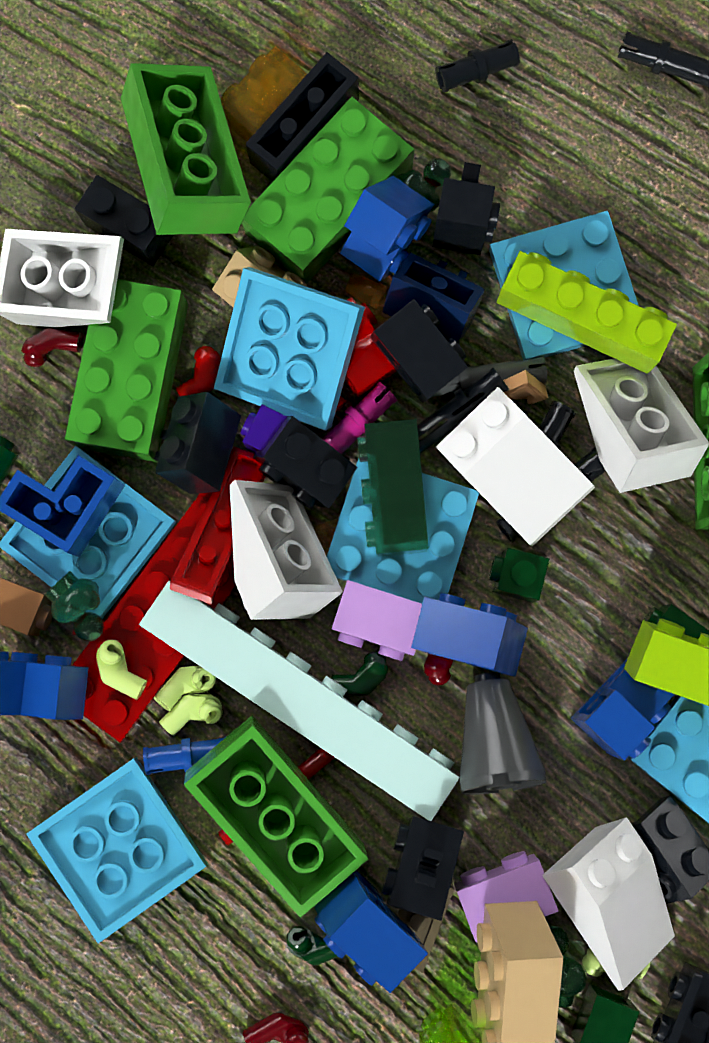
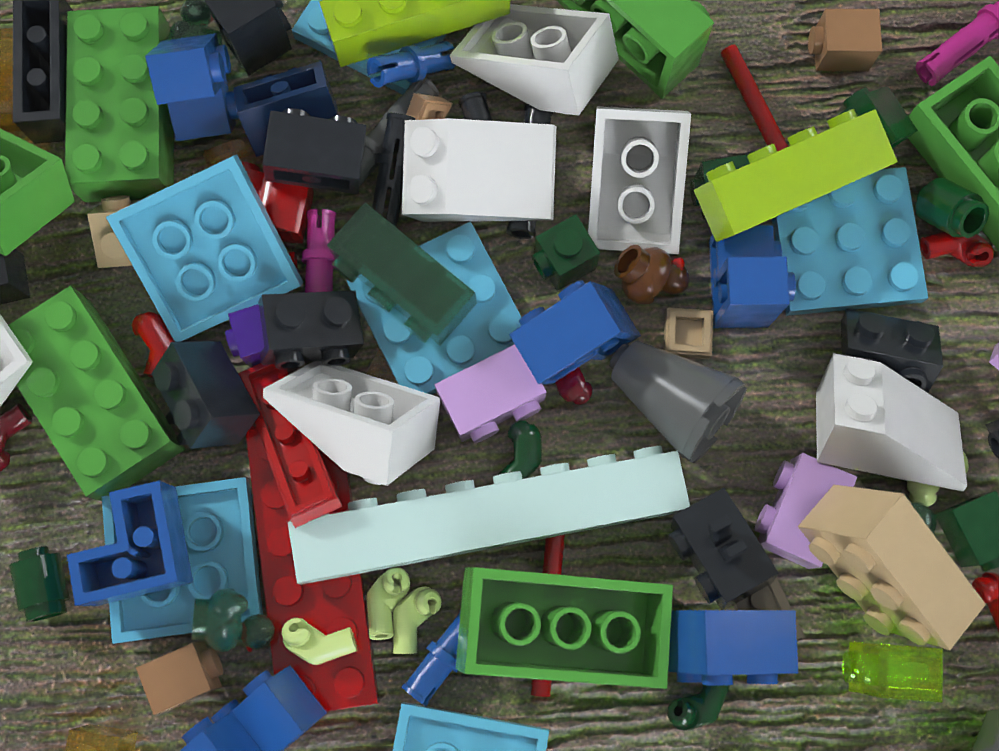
camera: 50 degrees left, 5 degrees down
(543, 347) = (410, 64): none -> blue pin
(549, 705) = (688, 332): none -> tan tile
(562, 641) = (648, 272): none -> reddish brown animal
(620, 571) = (638, 178): none -> white slope

